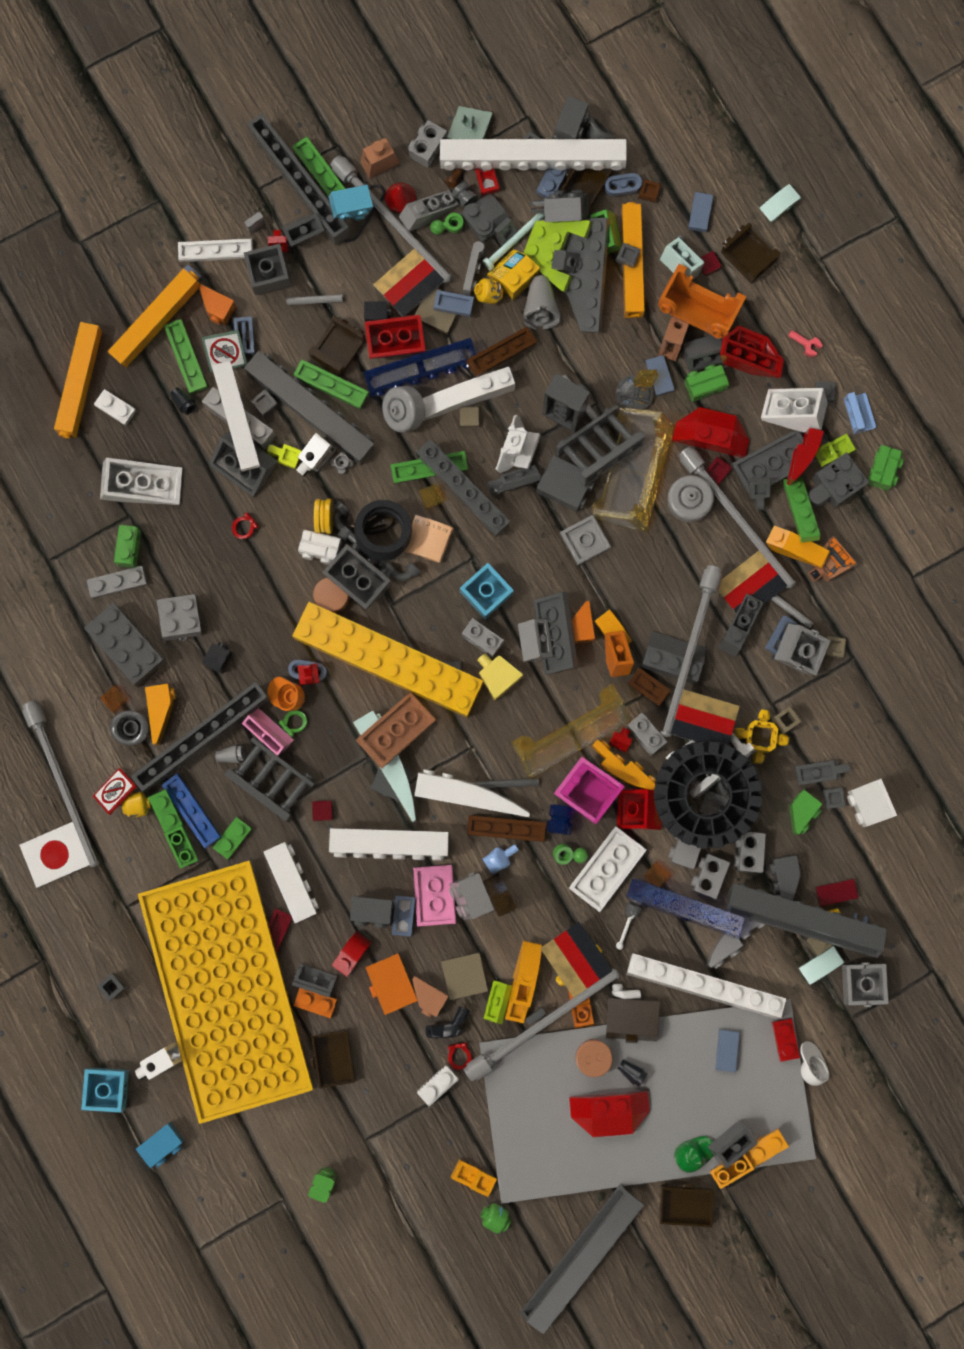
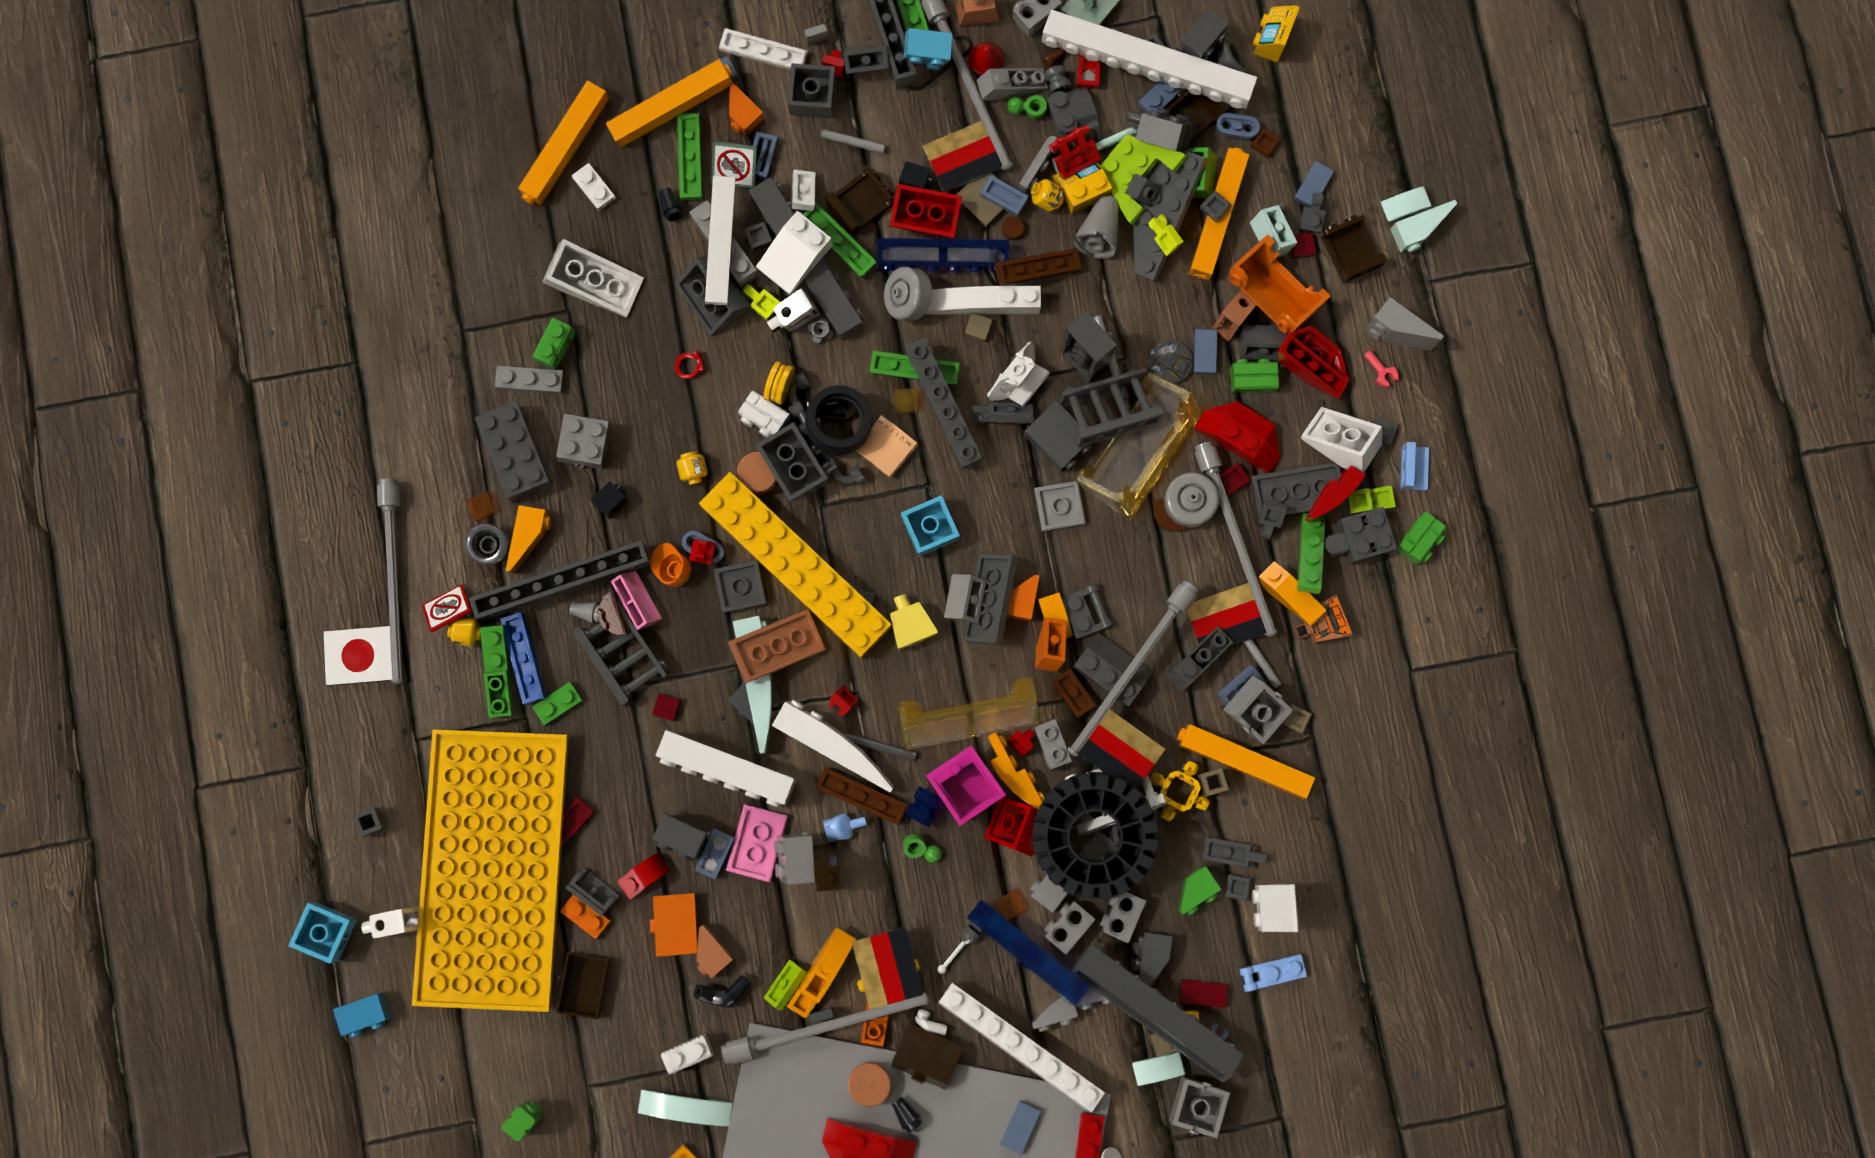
camera: 15 degrees right, 0 degrees up
(252, 751) = (611, 616): none -> tile
(275, 609) = (691, 467): none -> yellow head
(283, 723) = (662, 608): bright green piece -> none
(288, 353) = (803, 190): none -> white plate
(290, 882) = (604, 774): white brick -> none
(299, 405) = (794, 252): none -> white slope
(348, 692) = (739, 586): none -> dark grey plate
(450, 1130) = (685, 1108): none -> light aqua slope
(452, 1048) = (717, 1018): red piece -> none
(464, 976) = (759, 943): dark tan tile -> none
(465, 755) = (843, 699): none -> red tile
(469, 327) = (1012, 228): none -> reddish brown tile
(482, 638) = (907, 576): light grey brick -> none
(503, 252) = (1078, 157): none -> red plate
(597, 292) = (1166, 237): none -> neon yellow plate
(607, 869) = (957, 879): white plate -> none
(627, 98) = (1275, 32): none -> yellow slope
(632, 622) = (1079, 614): none -> dark grey plate
(645, 378) = (1188, 349): clear yellow plate -> none
(672, 522) = (1163, 518): none -> reddish brown tile
(709, 238) = (1313, 216): none -> dark grey plate
(794, 221) = (1414, 230): none -> light aqua slope
(806, 694) = (1245, 761): none -> light orange brick
(809, 303) = (1401, 327): none -> light grey slope
(887, 856) = (1273, 972): none -> light blue plate

